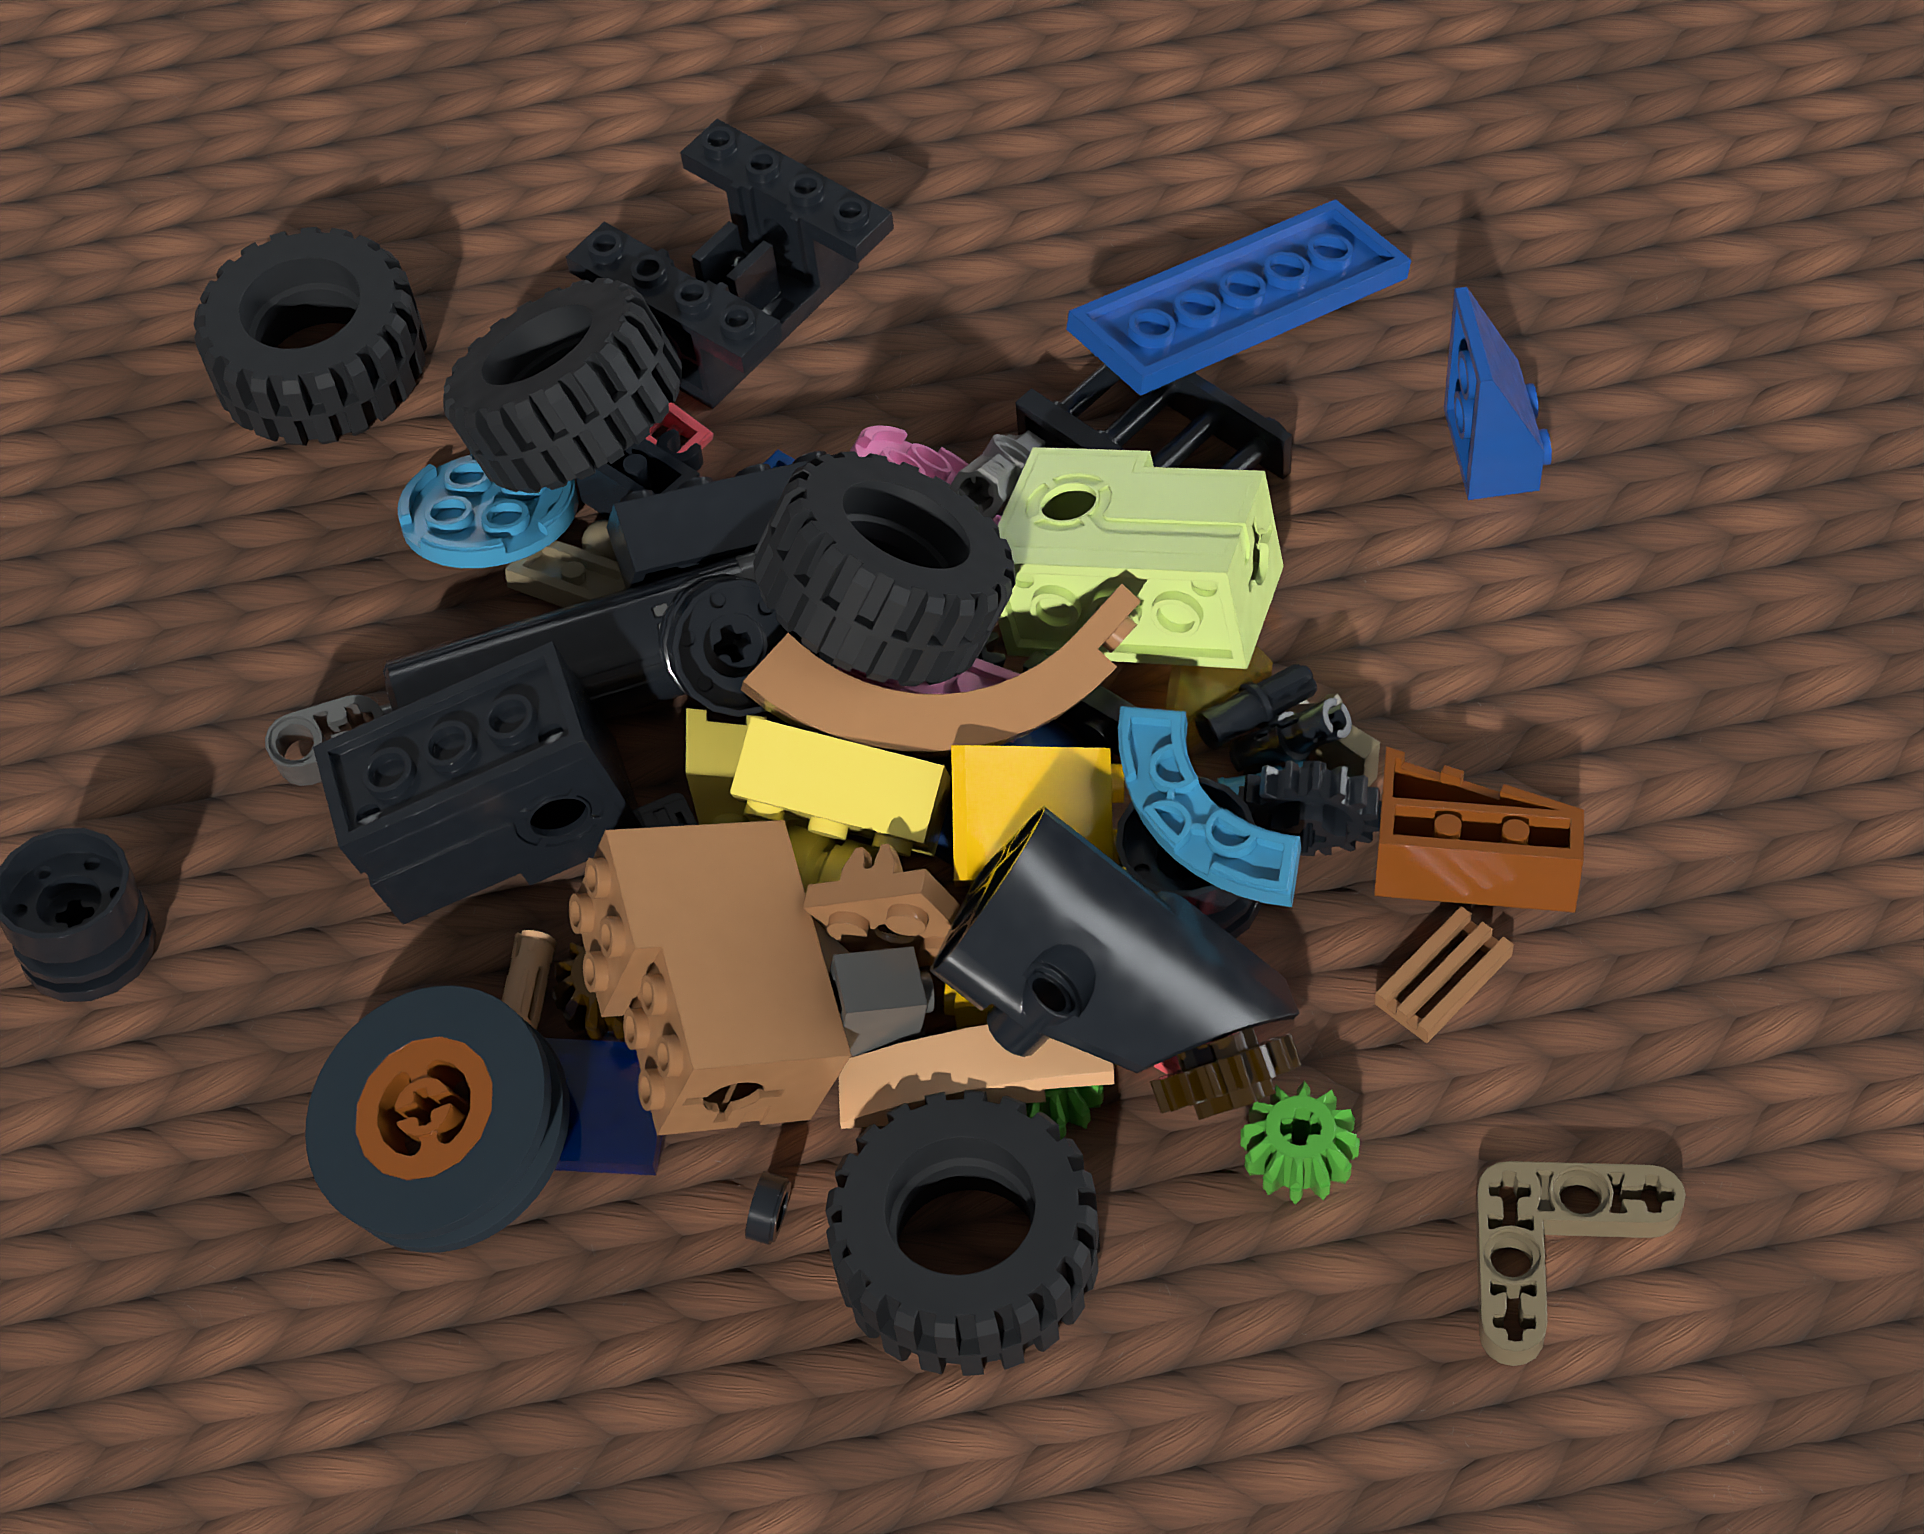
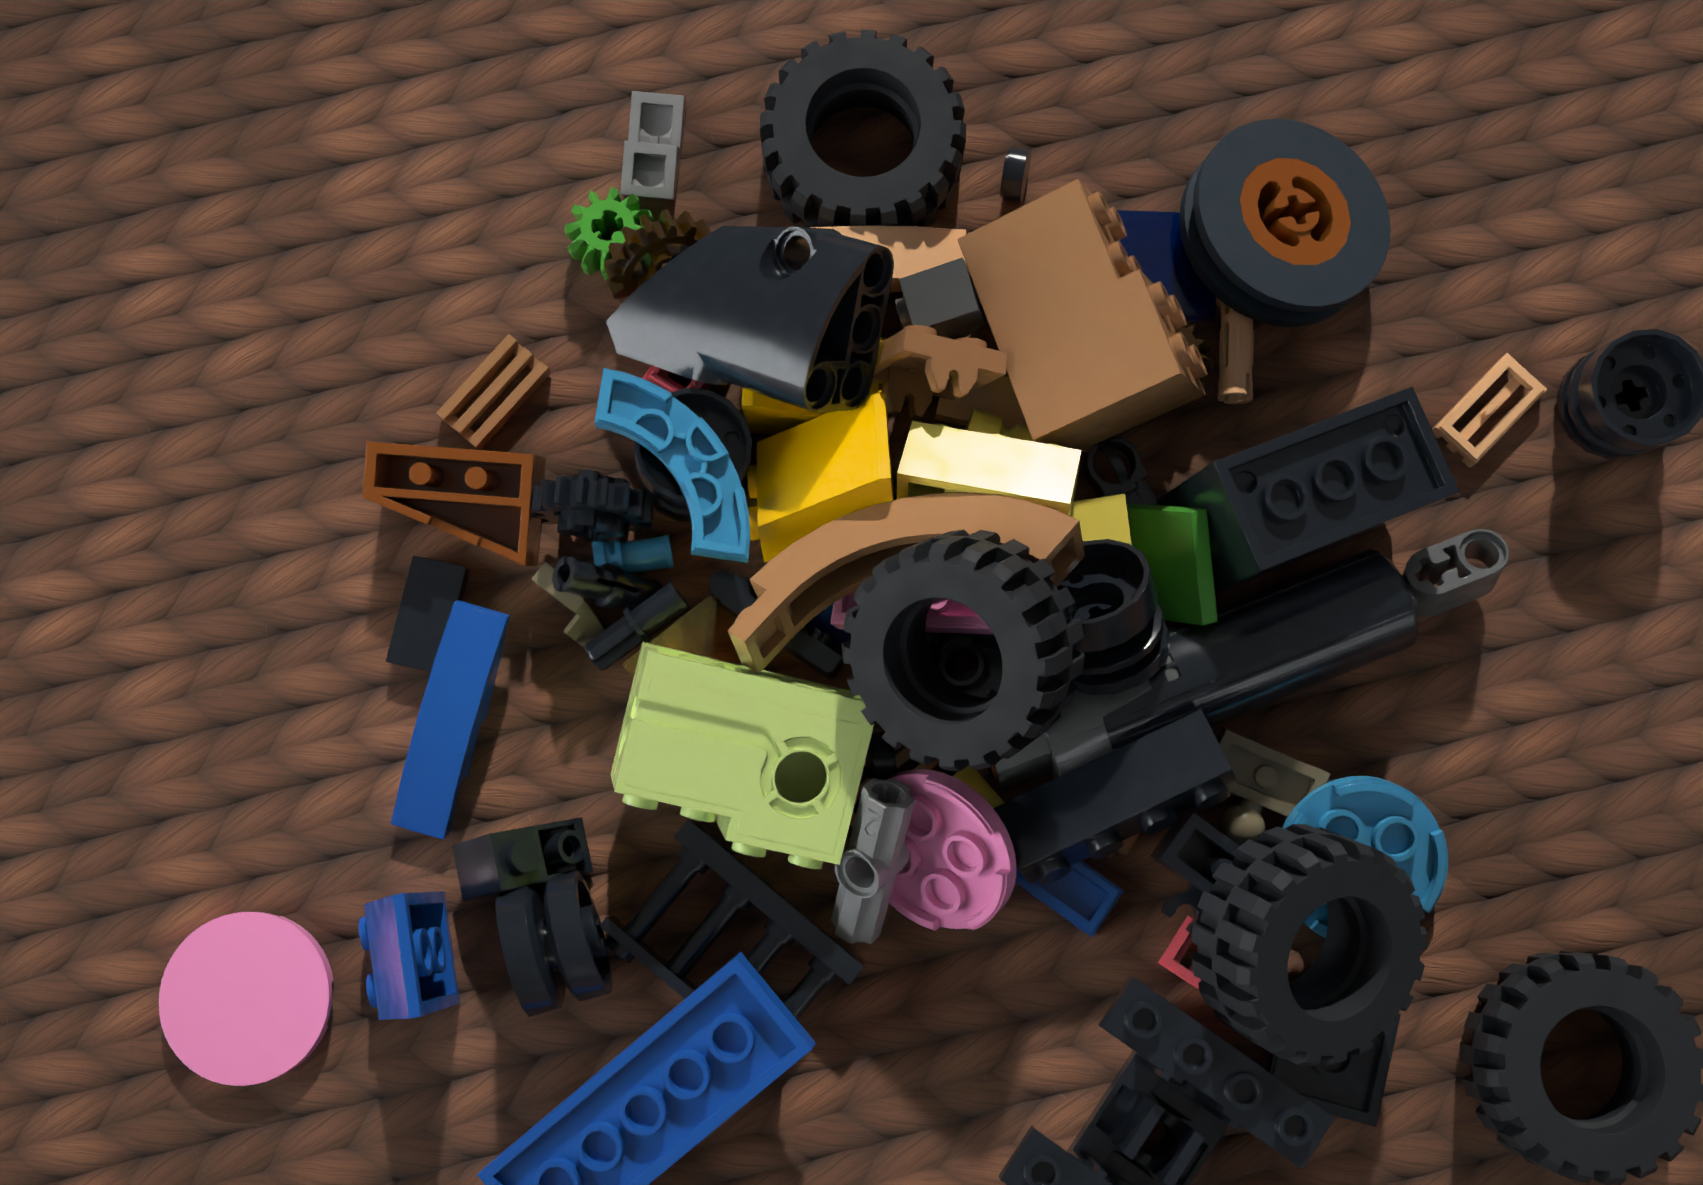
camera: 170 degrees right, 25 degrees up
(243, 944) = (1458, 440): none -> light nougat tile
(644, 737) = (1179, 559): none -> bright green tile
(1246, 1267) = (653, 145): none -> light grey slope
(1338, 415) = (553, 944): none -> black wheel
(1381, 506) = (521, 857): none -> black slope
(1467, 632) = (450, 719): none -> blue slope
(1507, 735) = (424, 611): none -> black tile
(1543, 1213) = (433, 191): dark tan beam -> none
(1669, 405) = (246, 998): none -> bright pink tile

